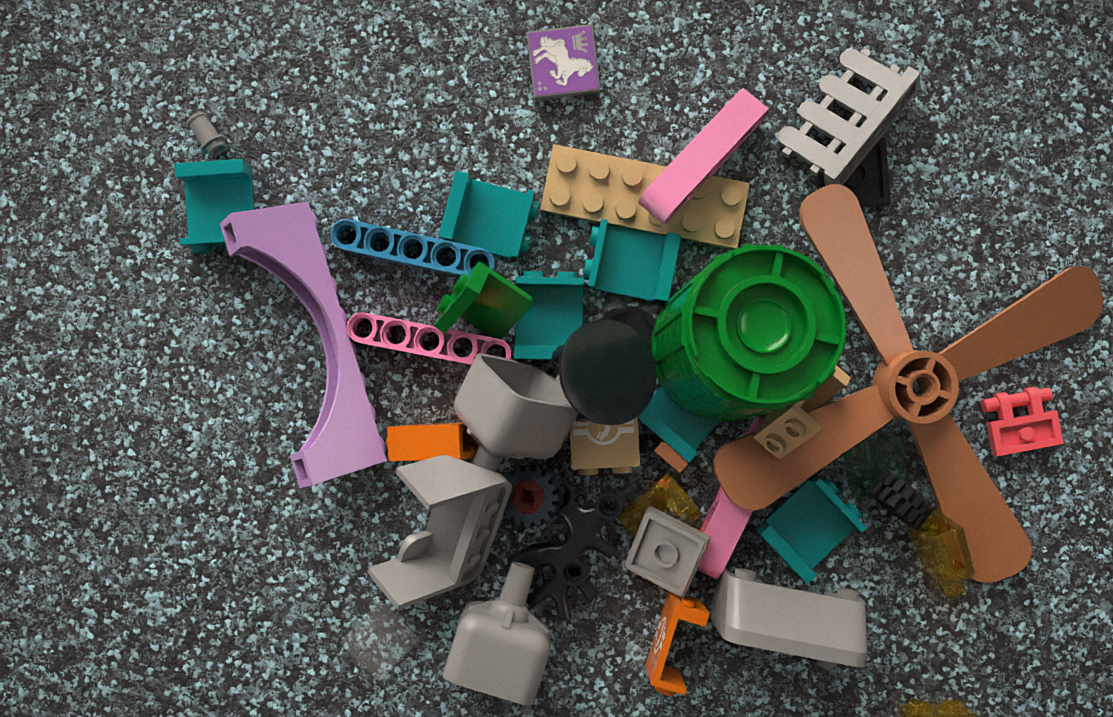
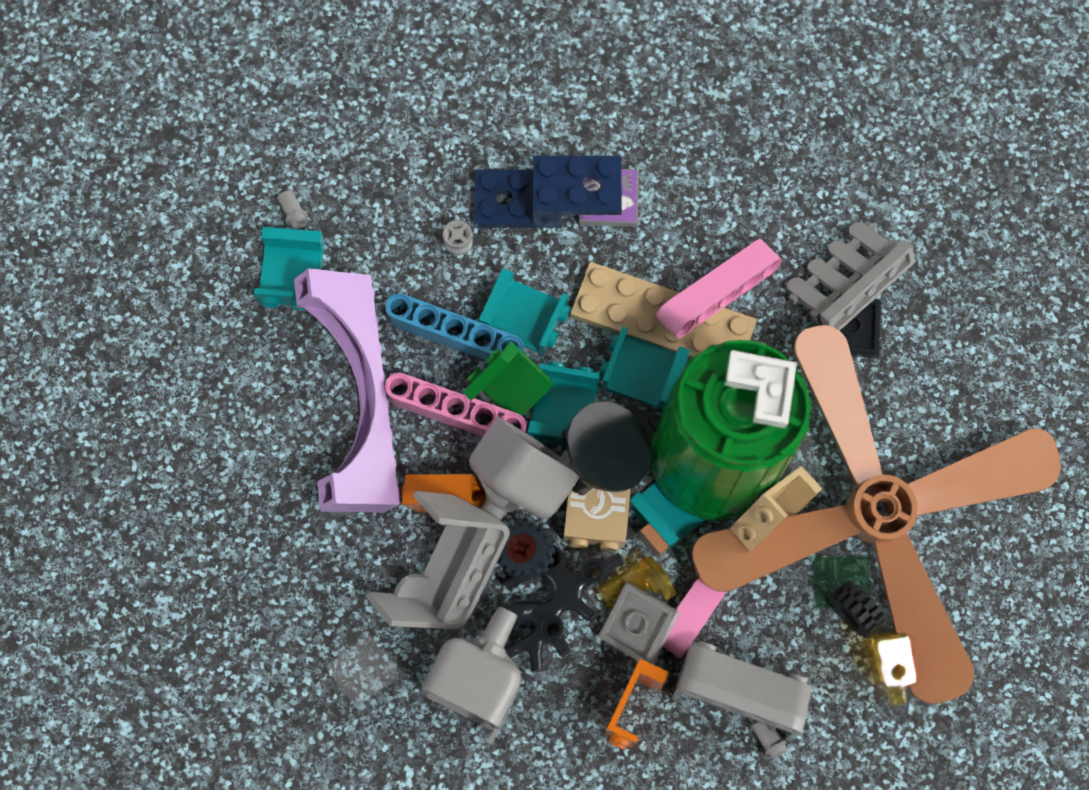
camera: 10 degrees right, 15 degrees down
(393, 135) = (457, 231): none -> light grey wheel
(494, 68) = (548, 192): none -> dark blue bracket
(801, 299) = (772, 381): none -> white plate
(809, 525) = (774, 625): teal panel -> none
(1023, 432) = (977, 570): coral plate -> none

